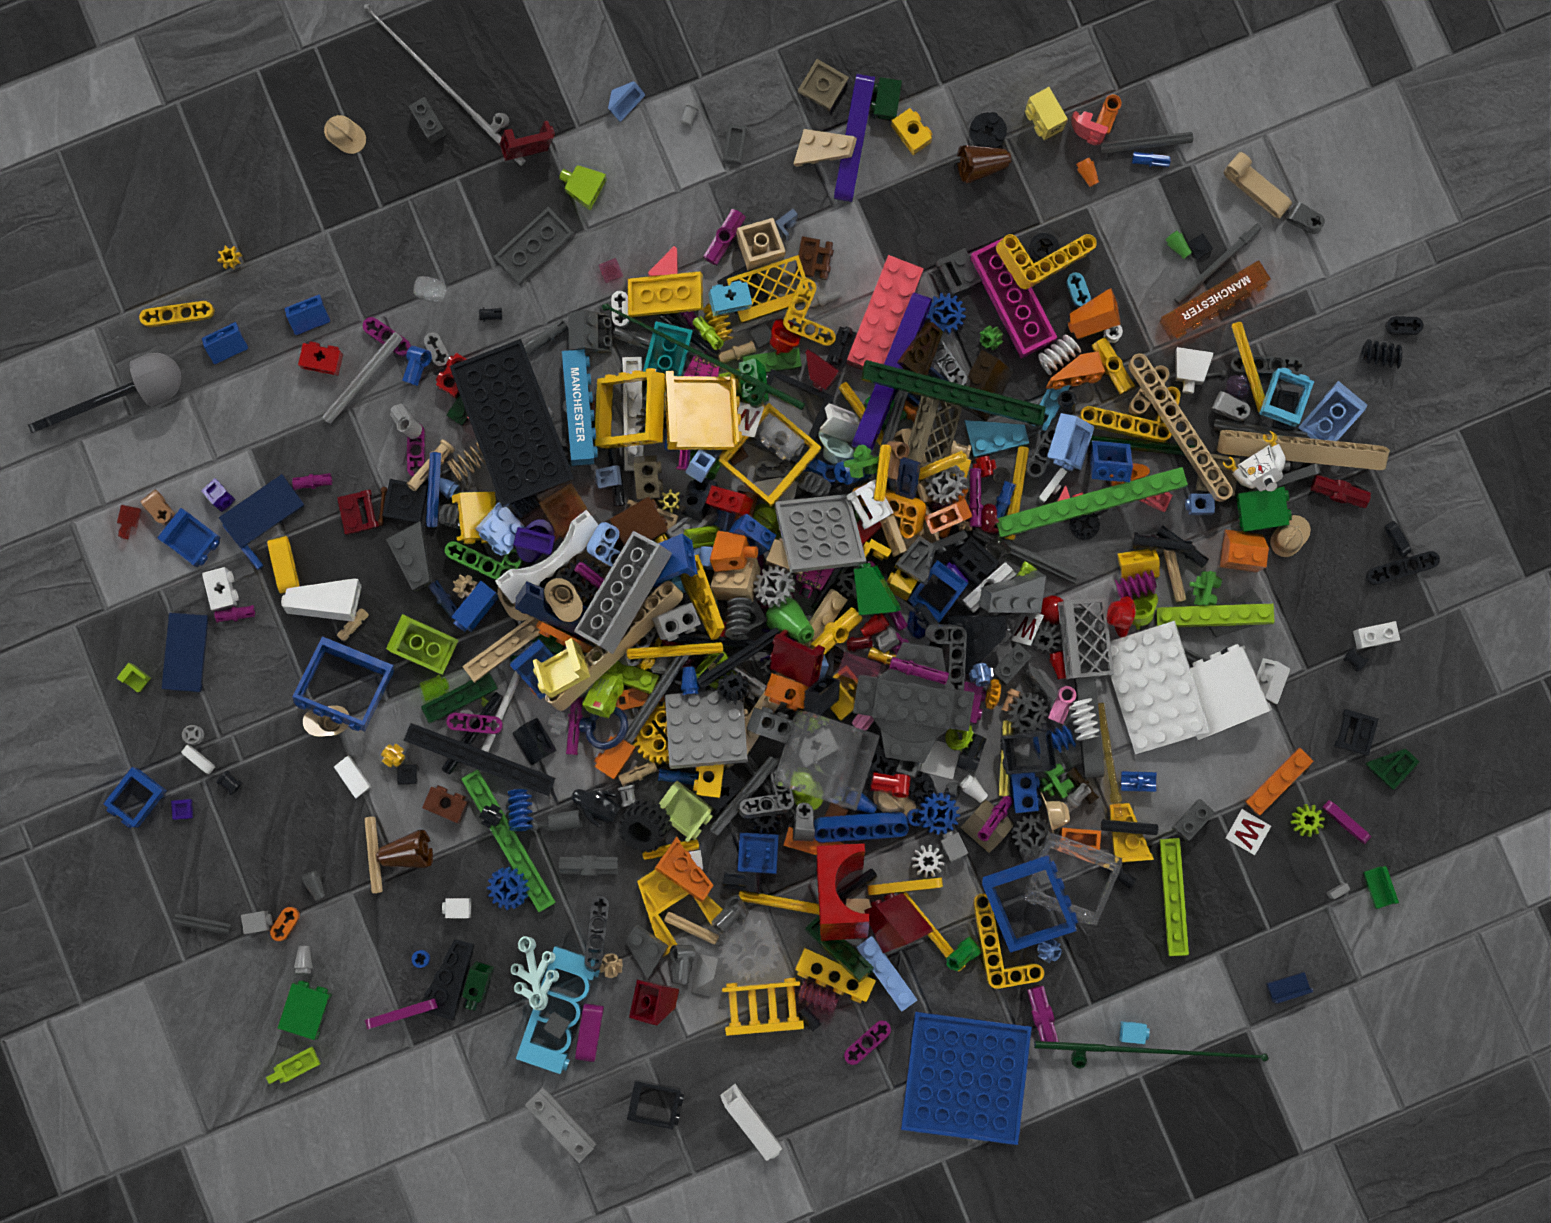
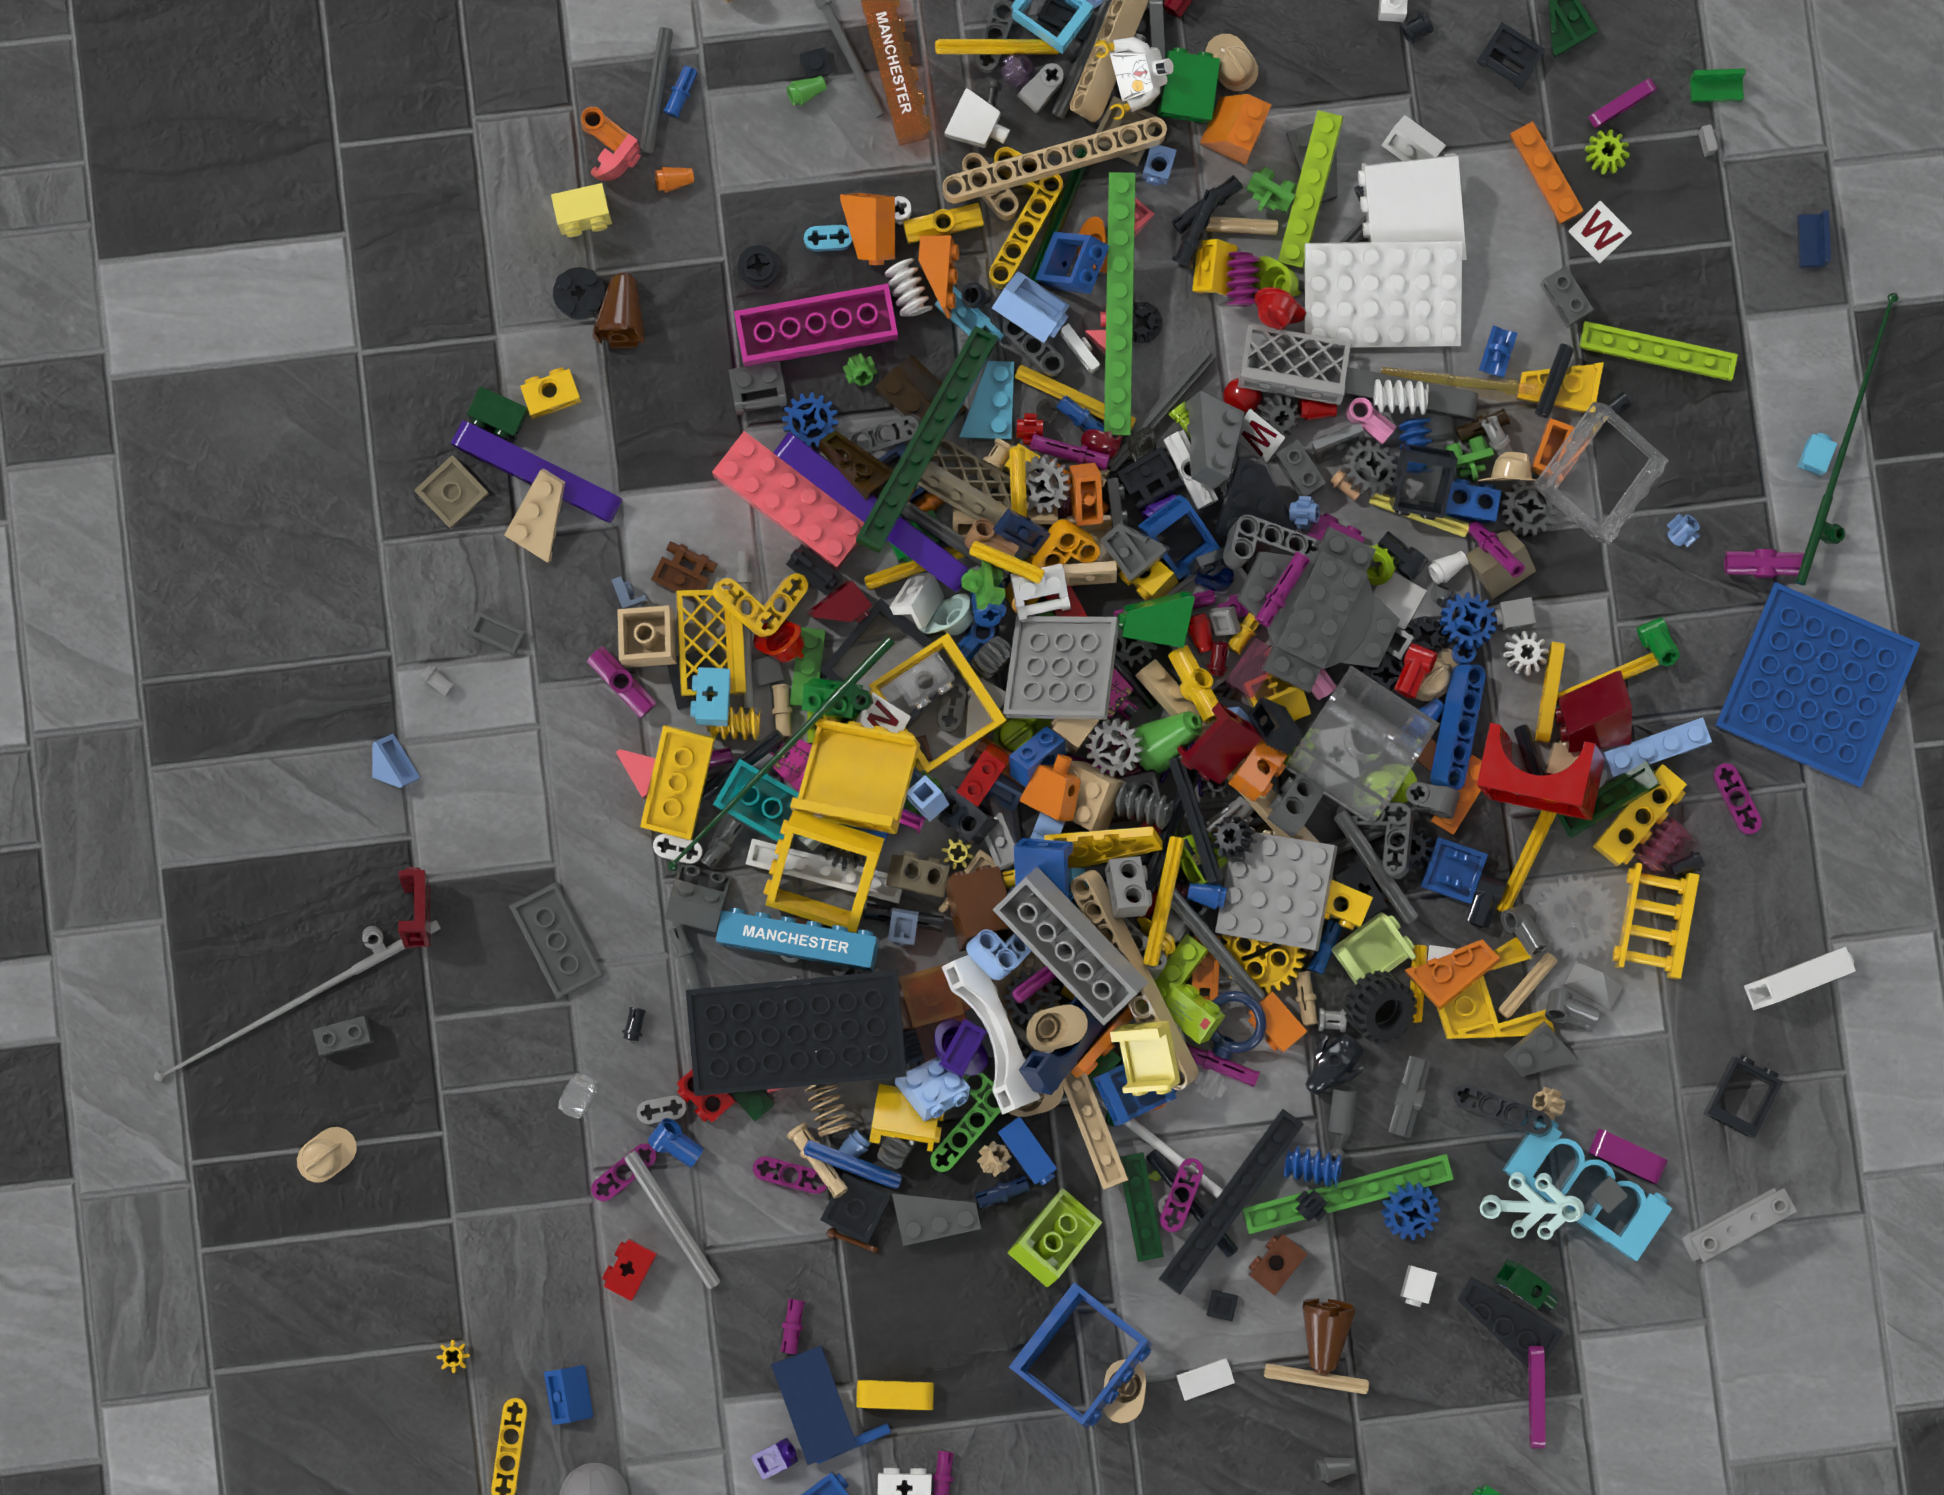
camera: 80 degrees left, 0 degrees up
(307, 314) = (562, 1272): blue panel -> none
(324, 600) = (960, 1350): white slope -> none
(351, 512) = (851, 1285): dark red plate -> none
(351, 626) = (1002, 1324): tan axle -> none
(393, 755) = (1193, 1316): yellow gear -> none
(405, 422) = (749, 1177): light grey piece -> none
(415, 956) = (1465, 1359): blue bush -> none
(434, 687) = (1117, 1236): clear neon green bracket -> none
(534, 741) = (1226, 1124): black panel -> none
(583, 184) = (494, 850): lime torso -> none
(610, 270) = (622, 846): clear pink plate -> none
(652, 1002) = (1610, 1062): dark red slope -> none
(702, 536) = (1017, 823): lime tile -> none
(708, 333) = (749, 739): lime pin -> none
(879, 551) = (1102, 599): yellow bracket -> none
(990, 970) = (1663, 599): yellow beam -> none
(993, 694) = (1333, 505): light orange gear -> none
(1022, 870) = (1577, 536): blue window -> none
(1048, 264) = (787, 265): yellow beam -> none

